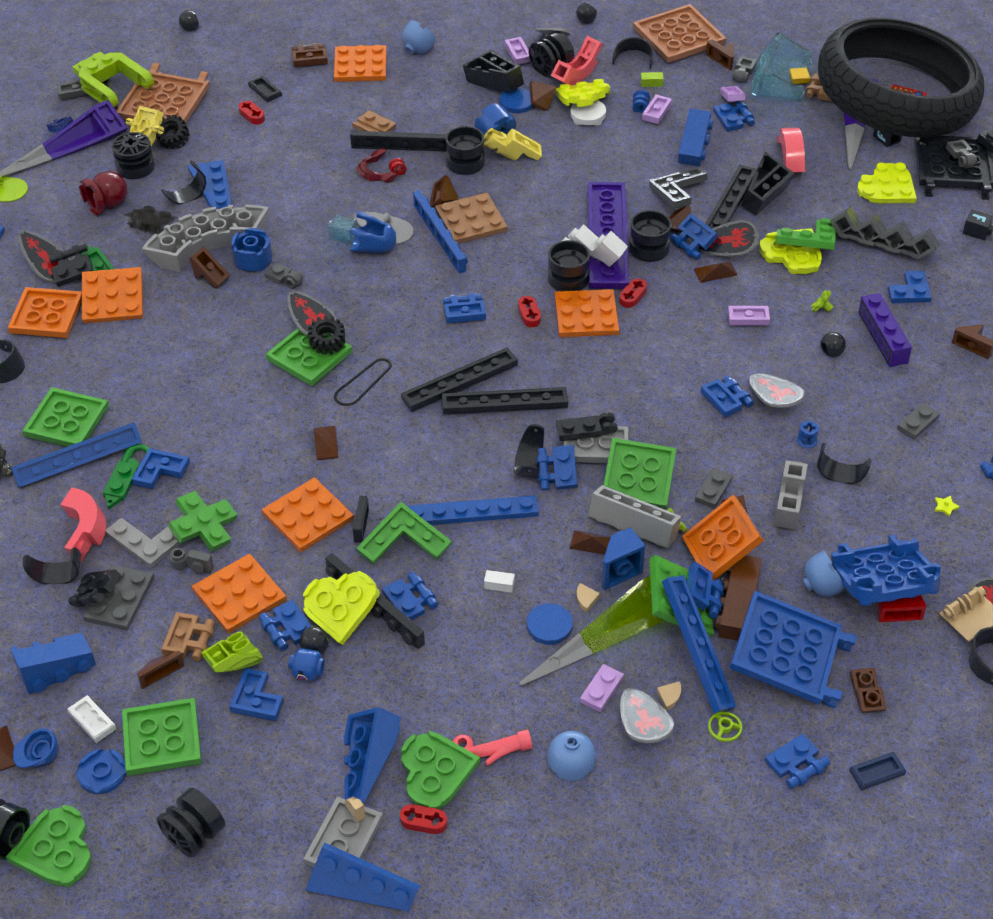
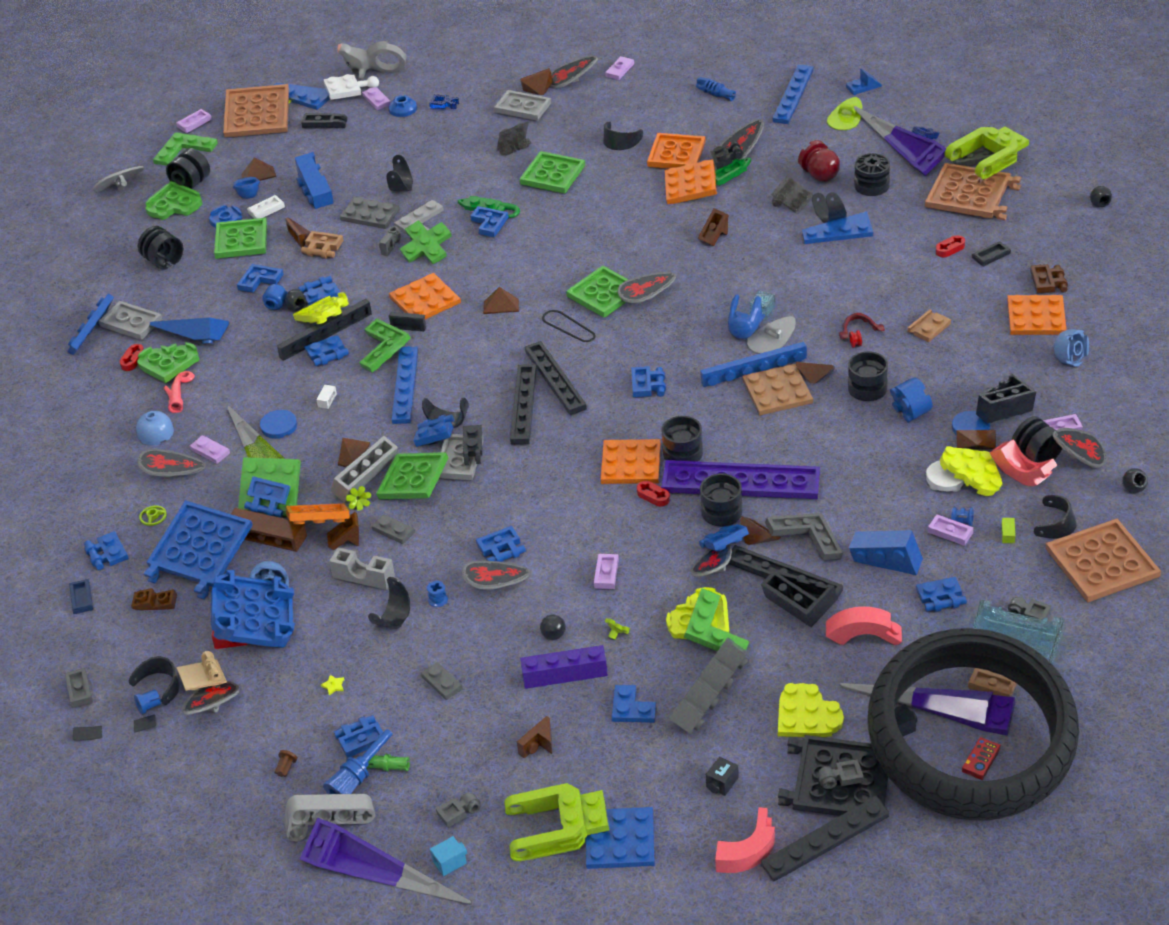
camera: 100 degrees right, 5 degrees down
(76, 454) = (510, 179): blue plate -> none
(91, 519) = (441, 188): coral arch -> none
(93, 587) = (372, 195): black plate -> none
(147, 122) = (910, 176): light yellow plate -> none
(176, 139) = (911, 196): black tyre -> none
(208, 229) = (762, 221): light grey brick -> none
(232, 654) = (294, 263): lime slope -> none
(239, 593) = (356, 267): orange plate -> none
(251, 250) = (734, 250): blue brick -> none
(279, 274) = (708, 273): dark grey plate -> none
(323, 326) = (615, 286): black tyre -> none
(356, 808) = (143, 317): tan tile -> none
(398, 141) = (896, 338): black plate -> none
(511, 145) = (879, 413): light yellow plate -> none
(525, 312) = (637, 423): red beam -> none
(586, 597) = (298, 445): tan tile -> none
(605, 248) = (701, 461): white arch -> none
(622, 558) = (319, 455): blue slope -> none
(669, 694) = (190, 485): tan tile -> none
(699, 644) = (216, 484): blue plate -> none
(715, 271) = (679, 557): reddish brown slope -> none
(721, 54) = (1056, 591): reddish brown slope -> none
(732, 93) = (974, 591): lavender plate -> none

